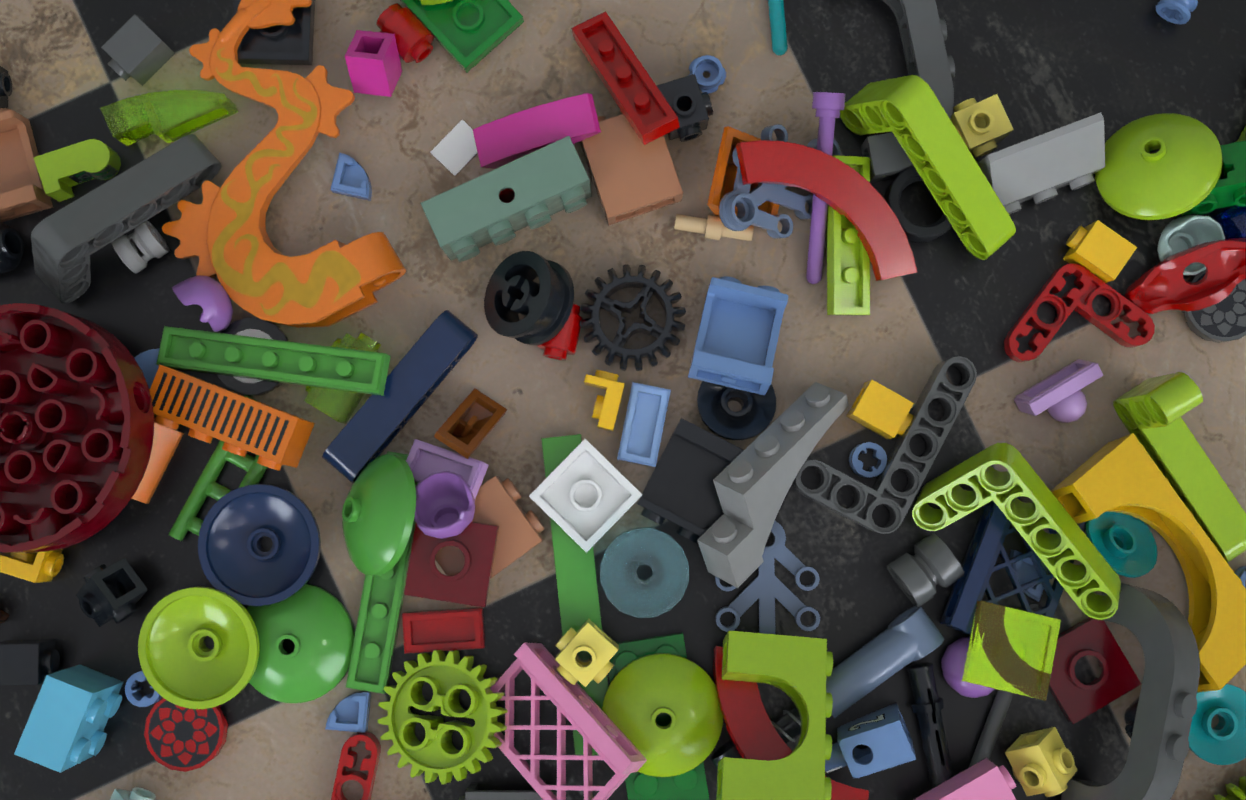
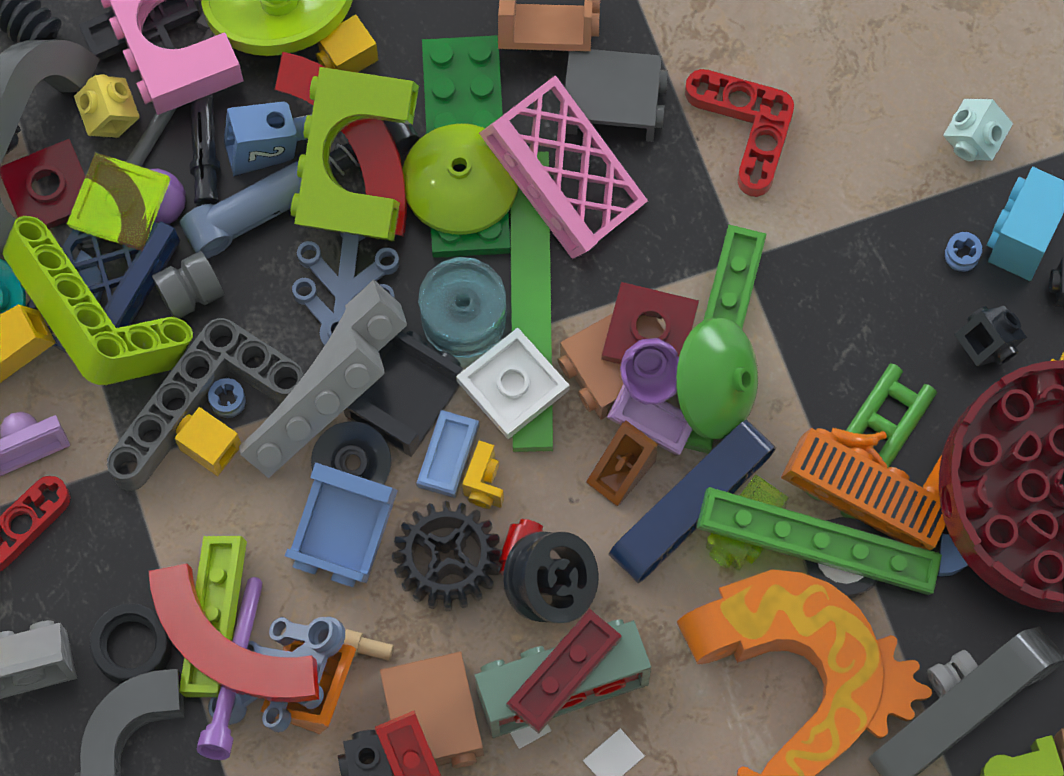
camera: 175 degrees left, 15 degrees down
(175, 650) = (911, 257): lime dish -> none
(184, 736) = (925, 210): tile -> none
(210, 296) = (887, 613): medium lavender hair -> none
(233, 550) = (844, 342): dark blue dish -> none
(239, 469) = (861, 441): none -> orange bar
(321, 639) = (809, 302): bright green dish -> none
(351, 179) = (730, 733): medium blue tile -> none
(351, 713) = (764, 211): medium blue tile -> none
(436, 753) = (665, 228): lime gear -> none
(443, 630) = (670, 275): red tile -> none
(502, 187) = (564, 671): none -> dark red tile
(535, 128) = (525, 752): dark pink slope -> none
(589, 639) = (527, 235): light yellow brick -> none
(938, 154) = (117, 678): lime beam -> none
(981, 124) = (48, 715): light yellow brick -> none

